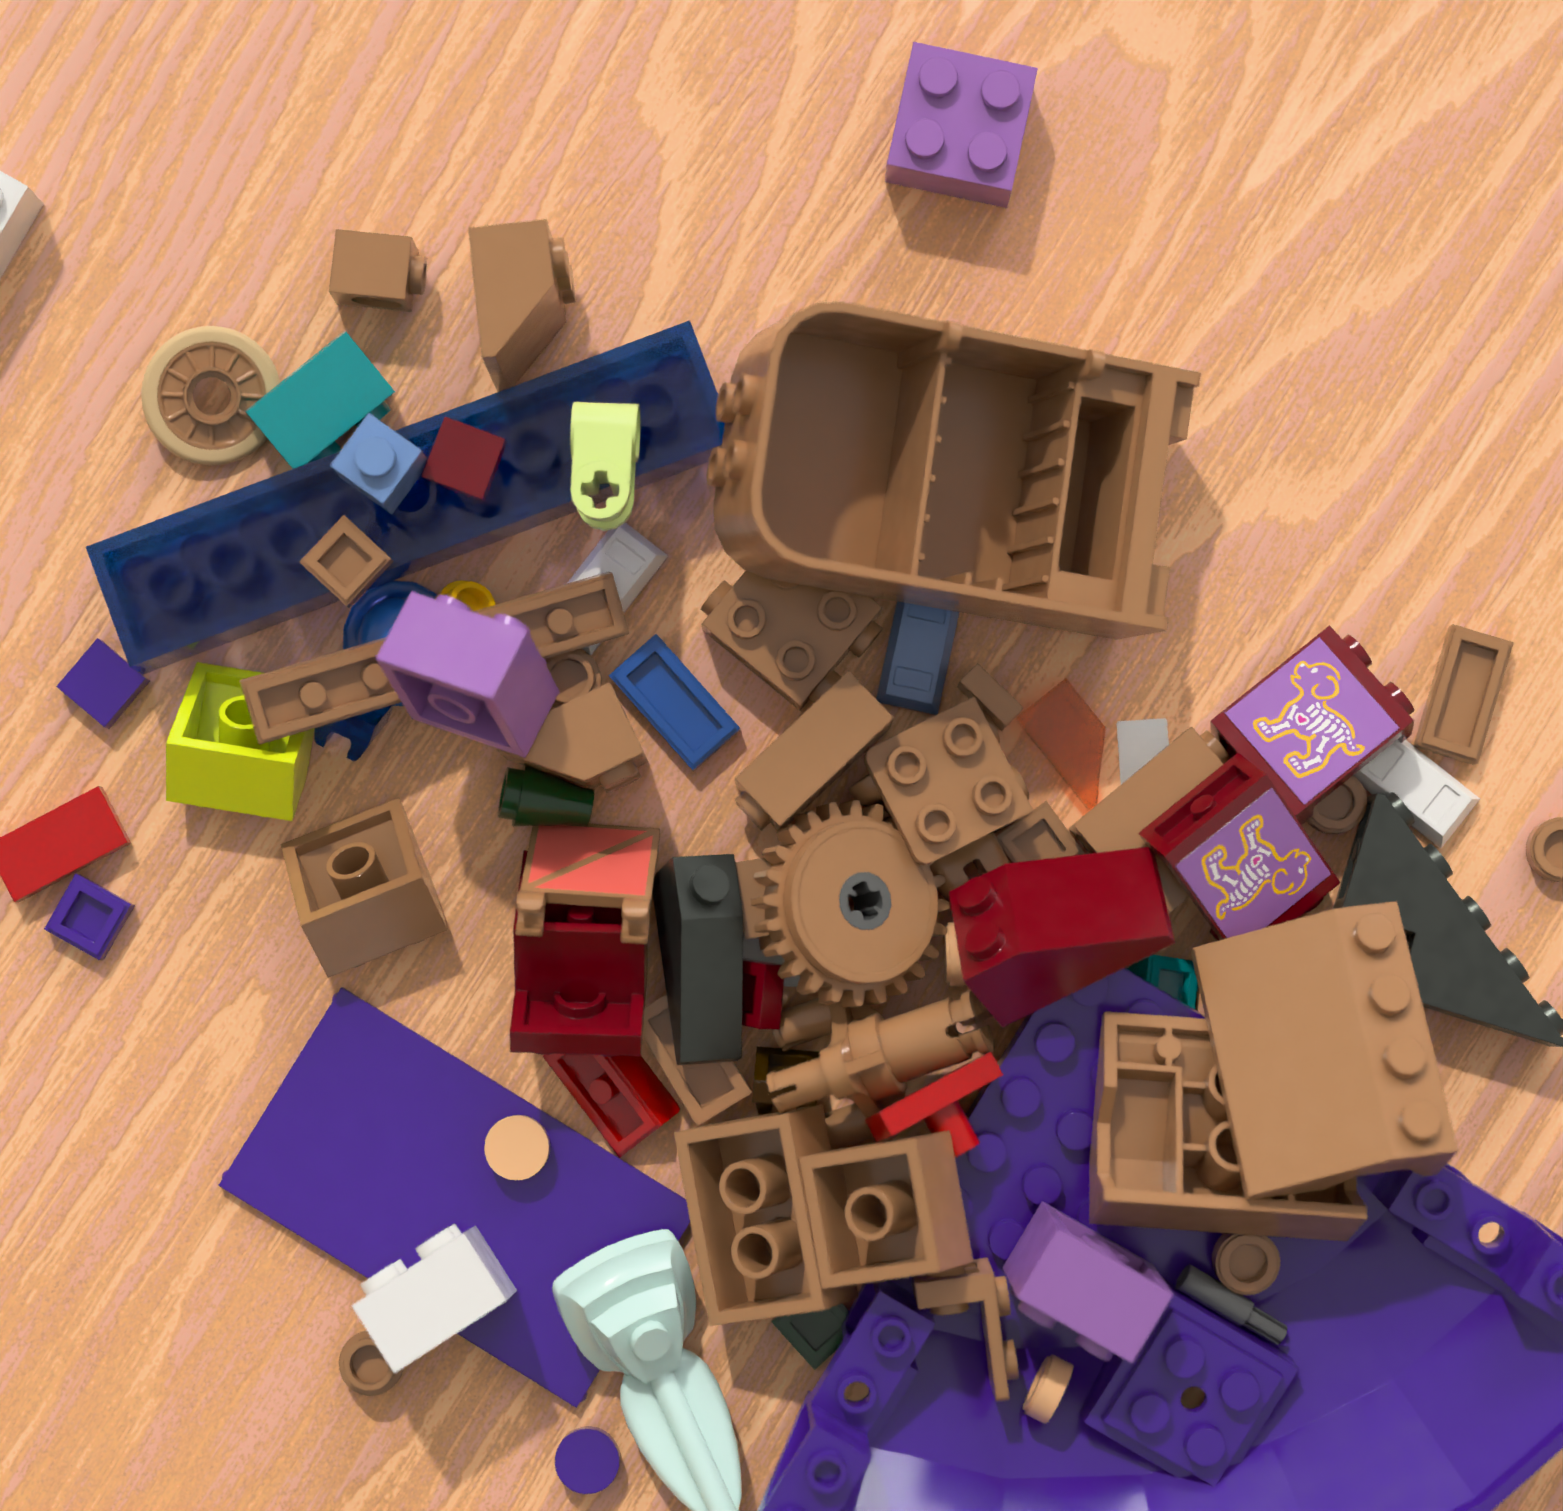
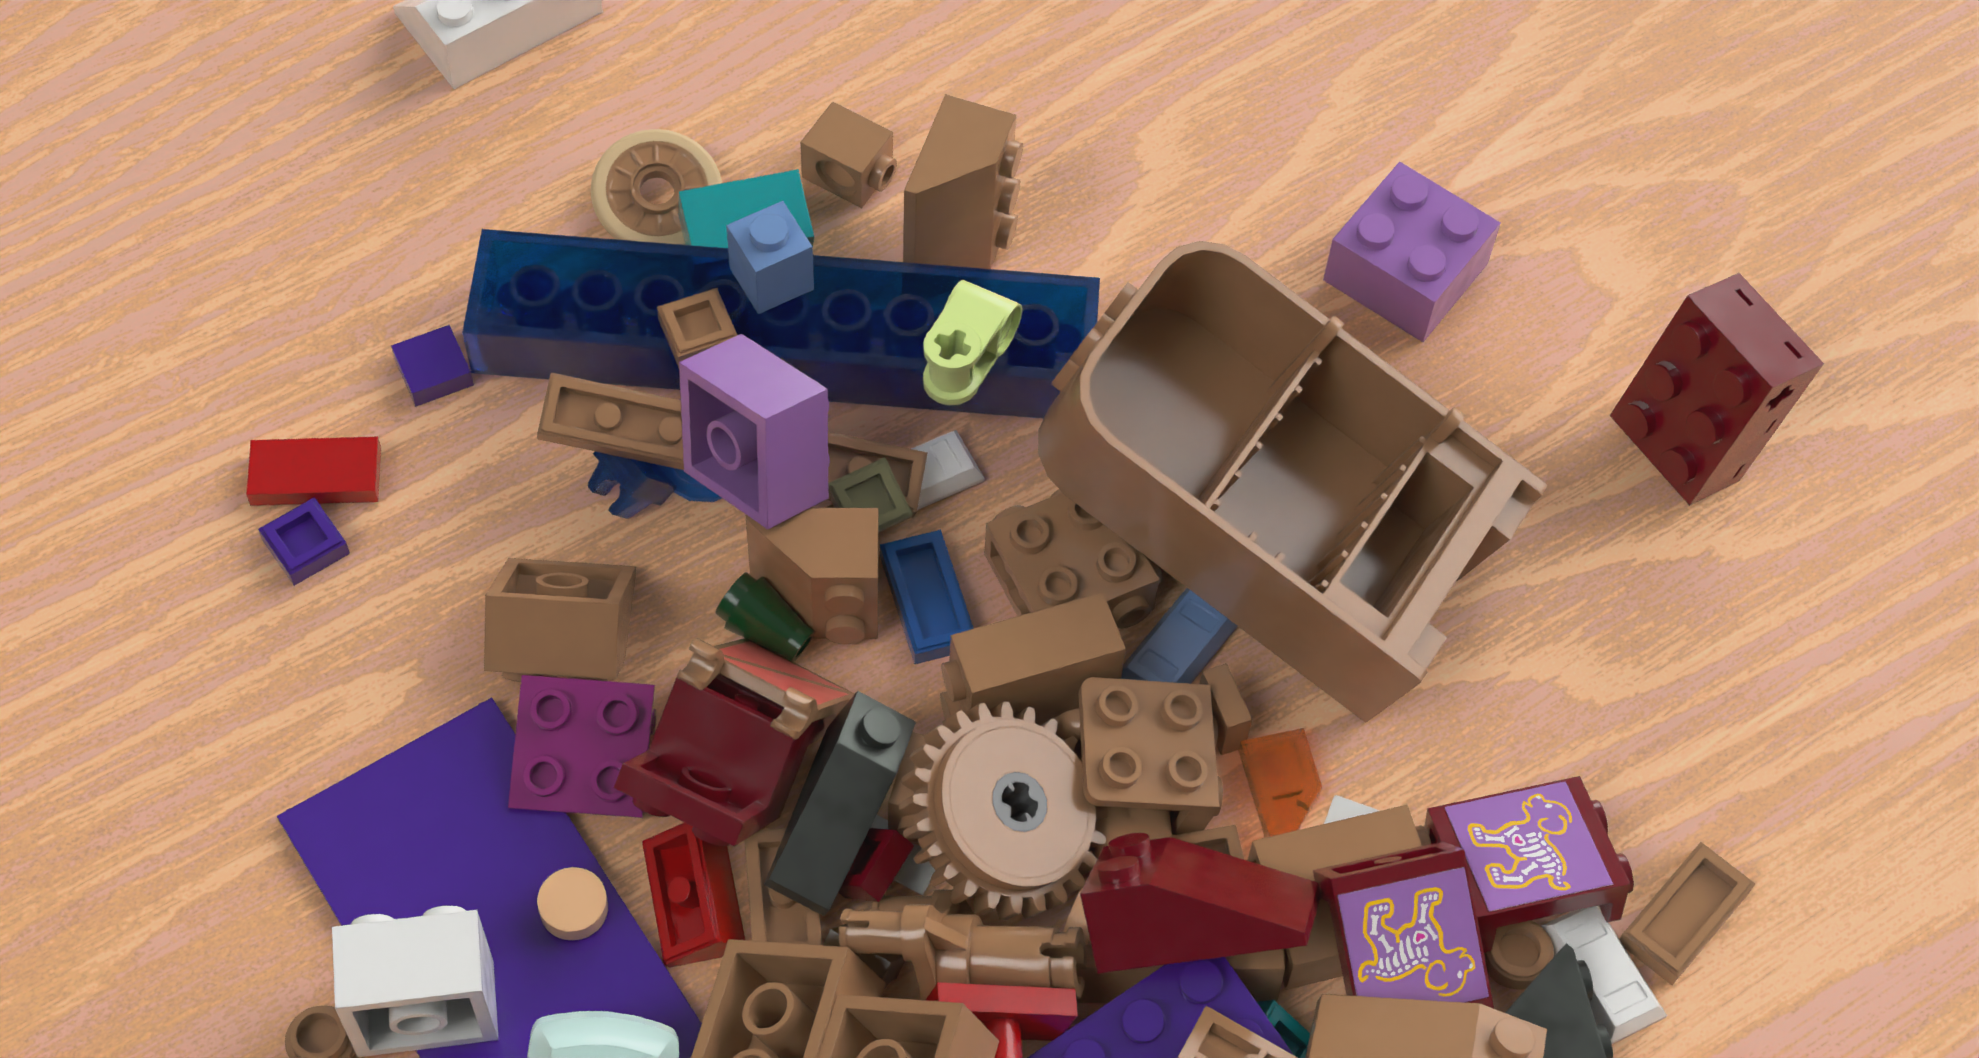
camera: 20 degrees right, 25 degrees down
(216, 755) = (496, 456): neon yellow slope -> none
(446, 1002) = (575, 742): none -> magenta hinge
(464, 459) = (845, 294): dark red tile -> none
(584, 651) = (872, 488): none -> olive tile
(1311, 175) = (1715, 388): none -> dark red piece

